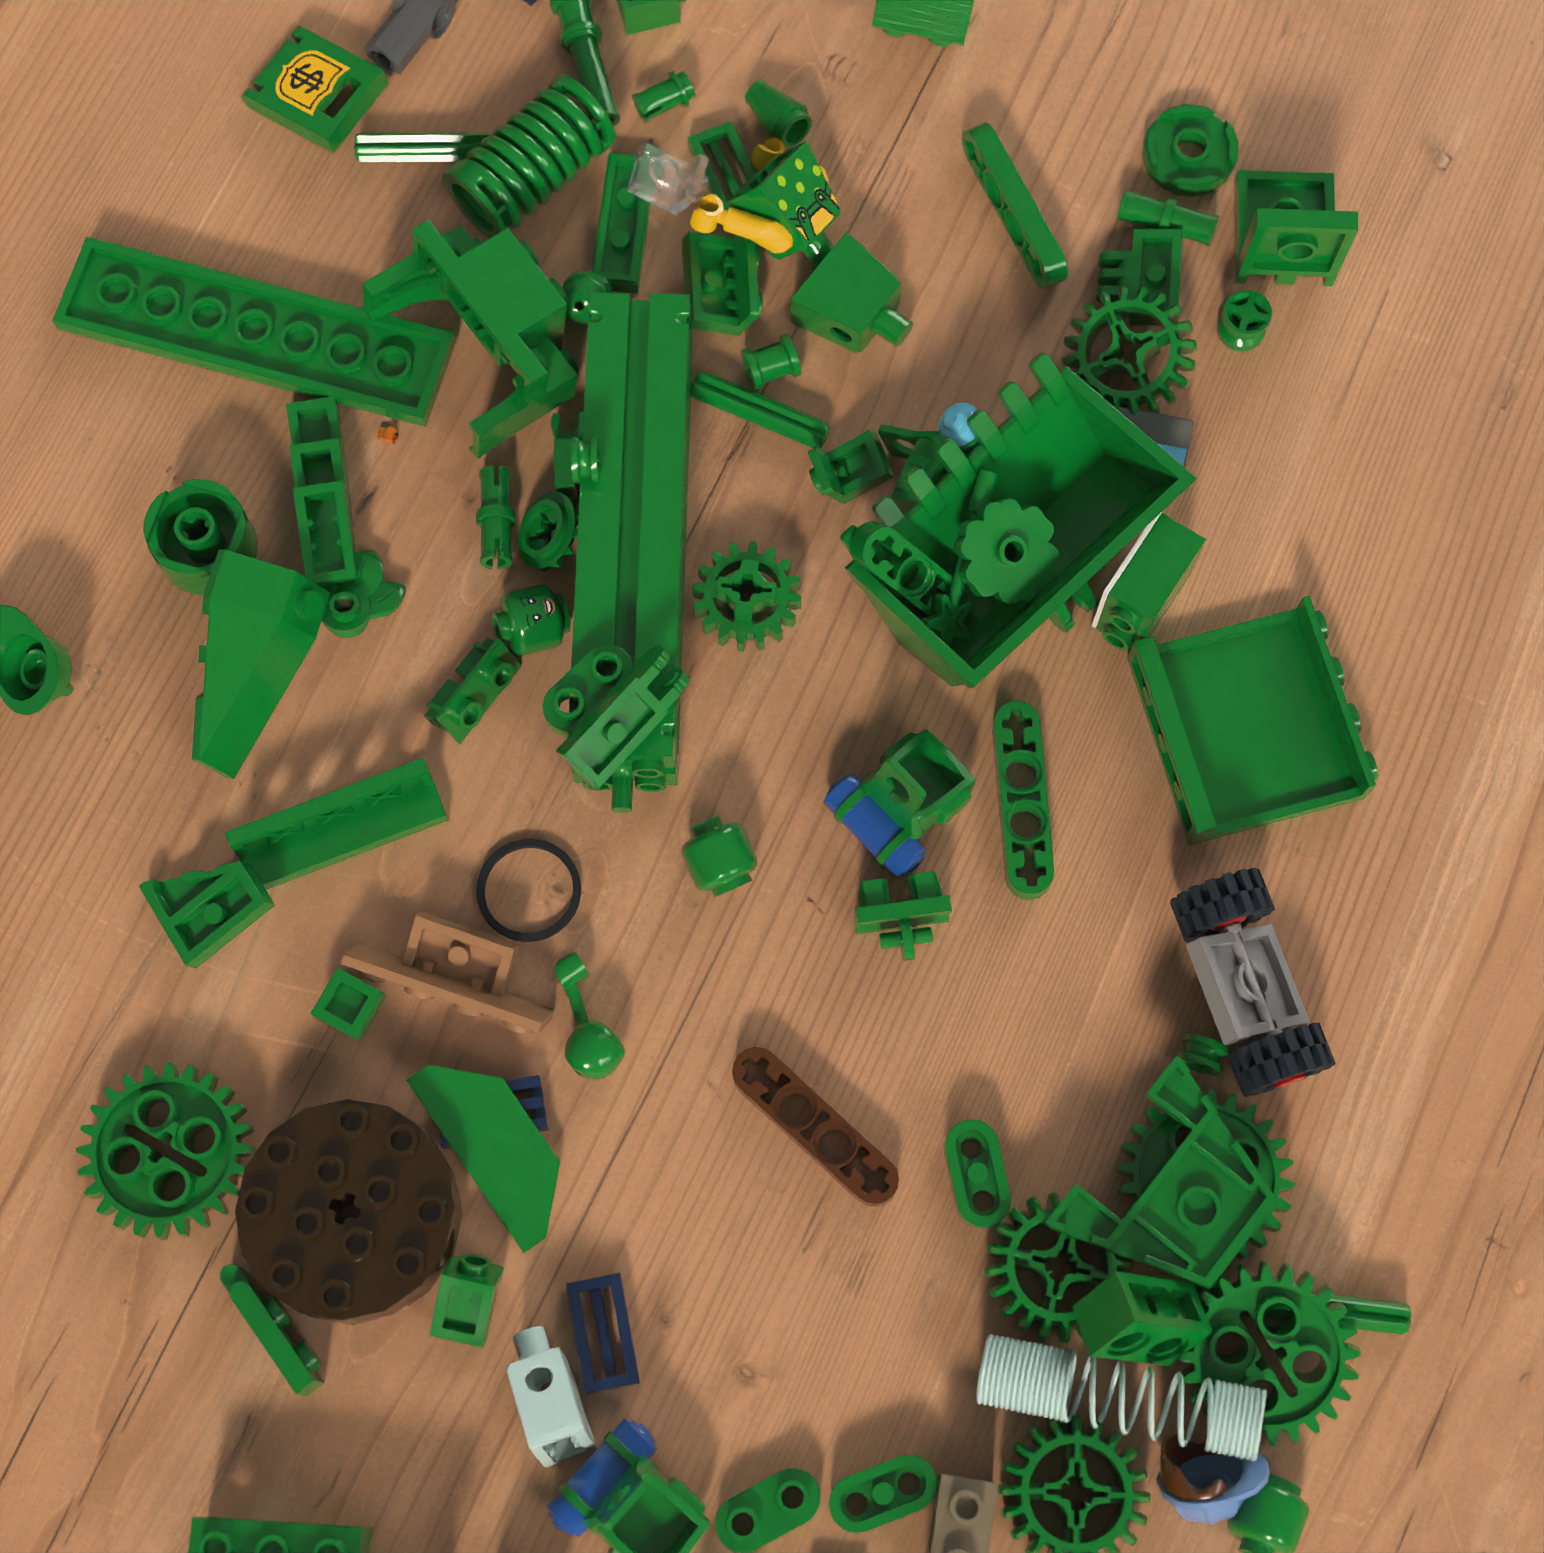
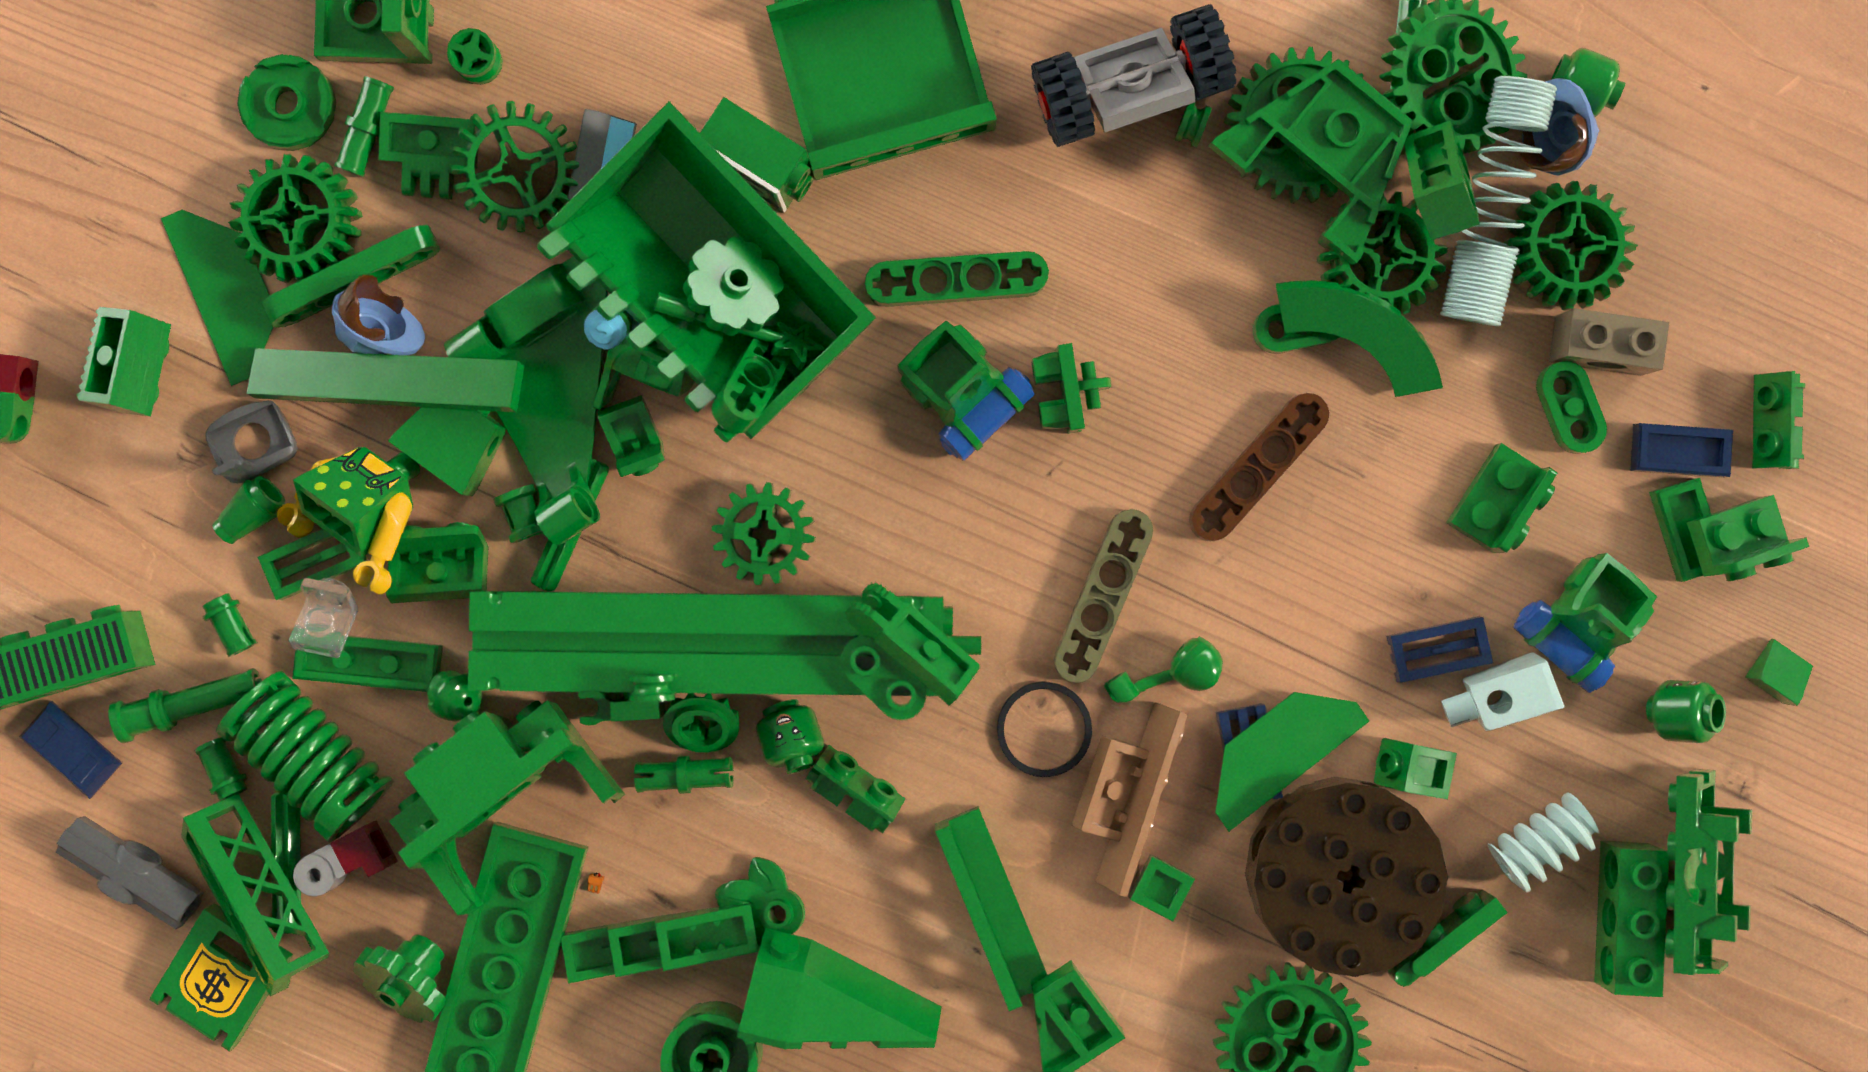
camera: 95 degrees left, 15 degrees up
(303, 248) = (404, 977): none -> green plant
(371, 1447) = (1545, 841): none -> light aqua piece
(392, 93) = (237, 903): none -> green fence
(424, 190) = (331, 864): none -> leg
(518, 89) = (221, 769): none -> green pin
(670, 958) = (1097, 593): none -> olive beam
(719, 856) = (1017, 555): green head -> none
(768, 1512) = (1581, 508): green plate -> none
(776, 1407) = (1502, 500): none -> green bracket
(848, 90) = (222, 436): none -> dark grey piece
(904, 386) = (561, 376): none -> green panel
(907, 233) = (386, 379): none -> green tile
(968, 224) = (375, 321): none -> medium blue piece
(977, 1242) = (1366, 322): none -> green tile
(1002, 95) = (224, 289): none -> green sticker
(1092, 140) = (288, 183): none -> green gear

